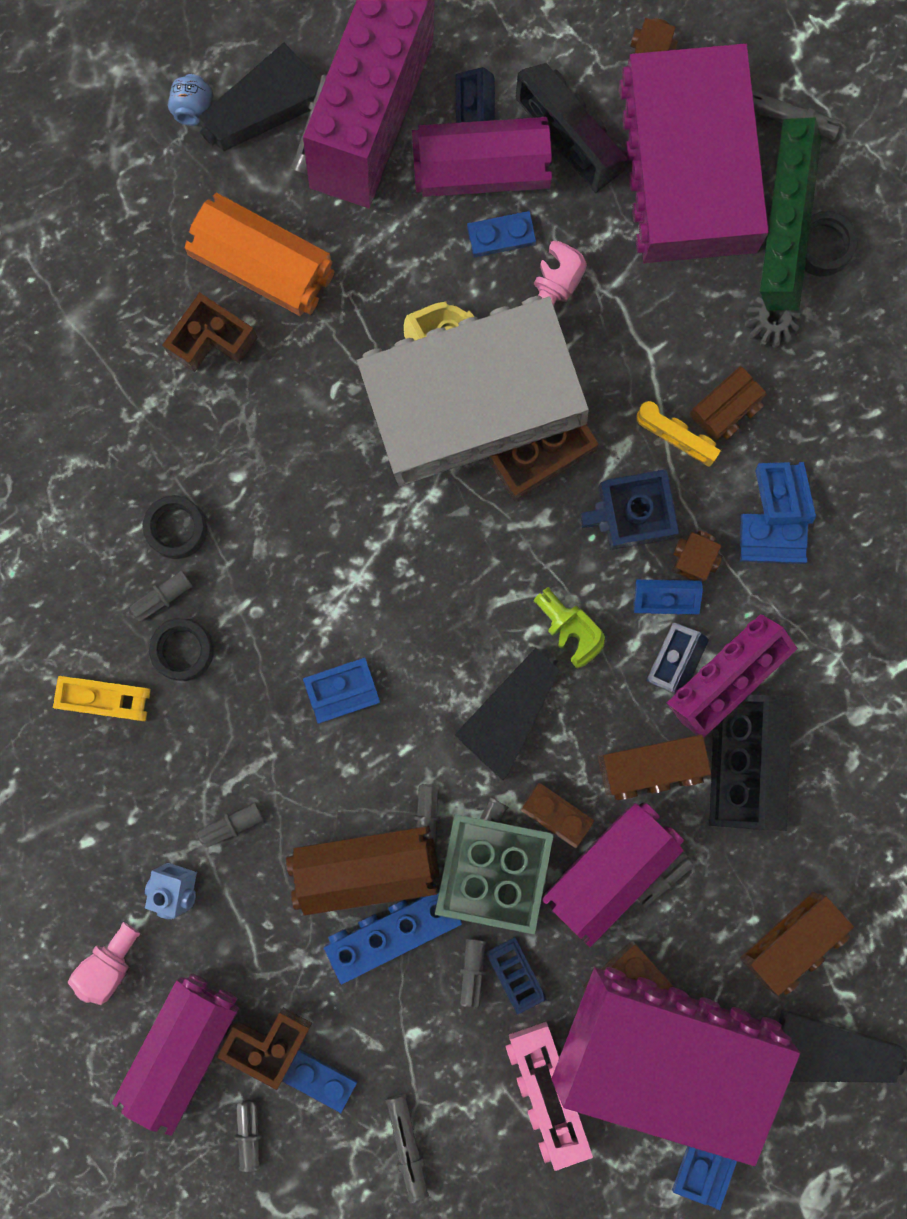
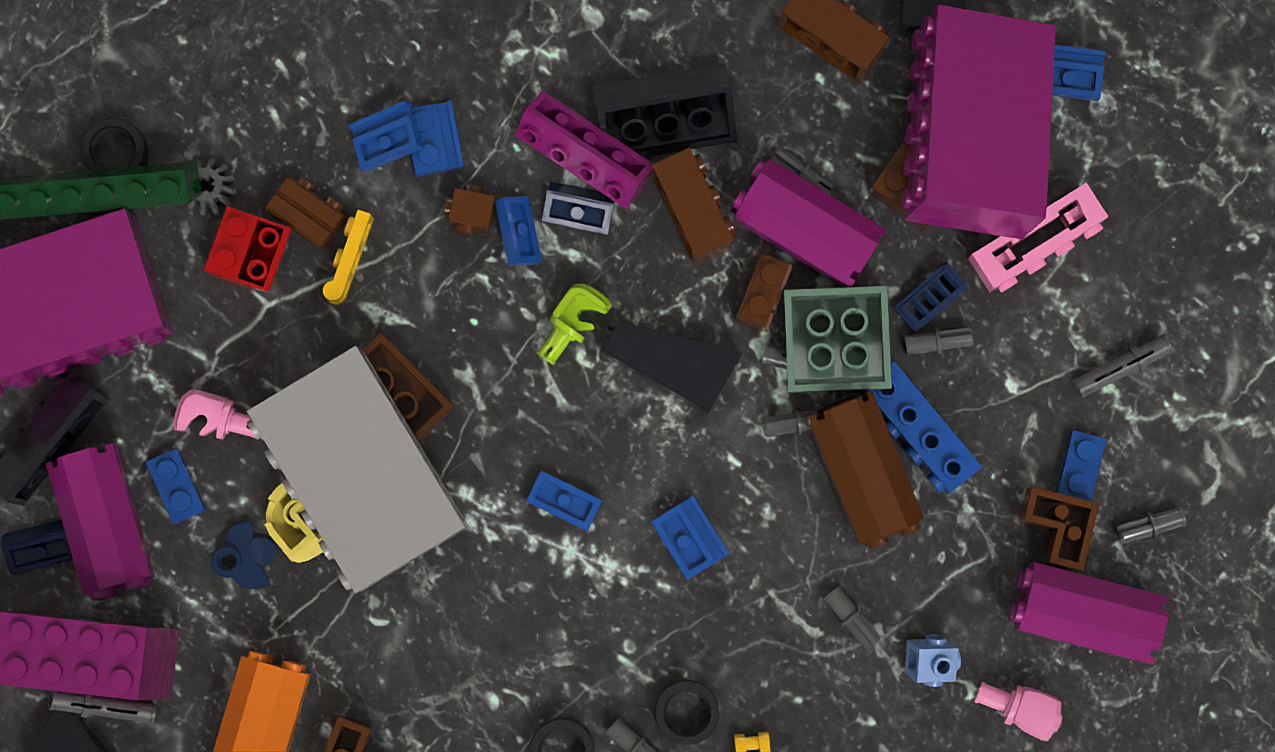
camera: 105 degrees left, 0 degrees up
(403, 581) = (564, 501): none -> blue plate
(421, 286) = (249, 554): none -> dark blue plate
(622, 526) = (443, 302): dark blue hinge -> none
(705, 341) = (247, 250): none -> red slope

